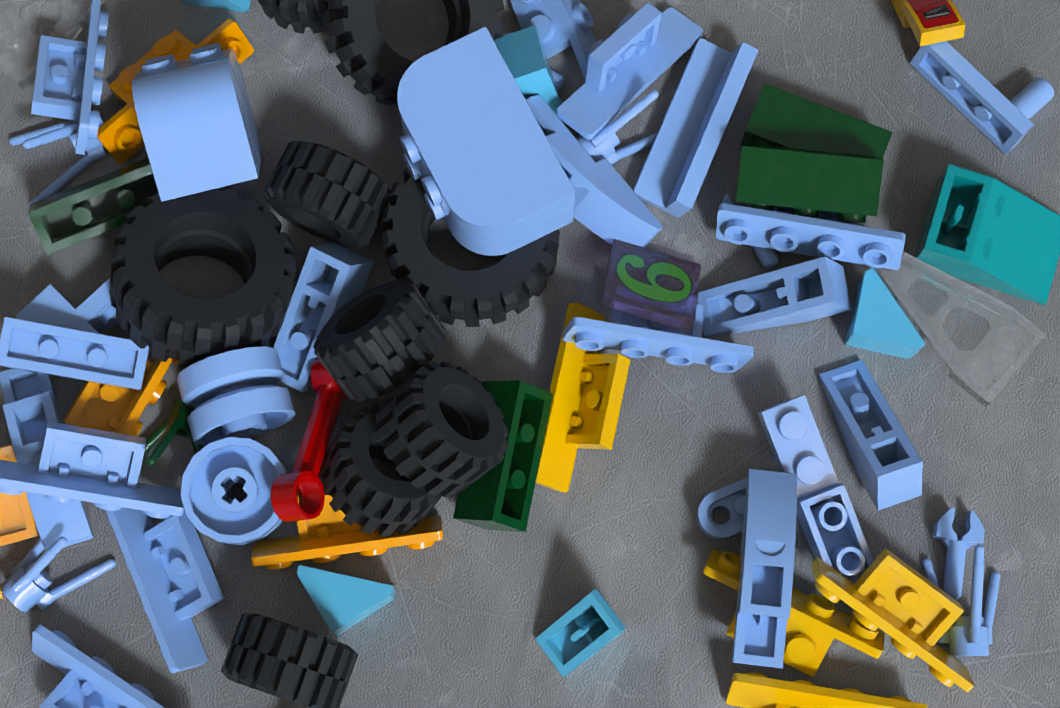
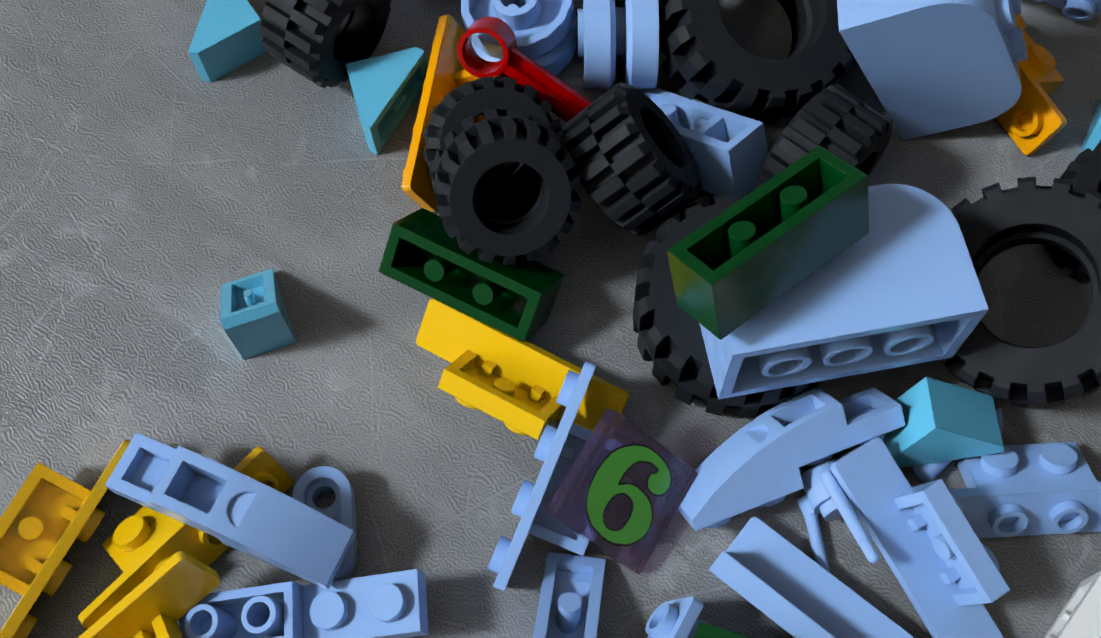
camera: 110 degrees right, 10 degrees down
(494, 173) = (769, 241): none -> dark green brick

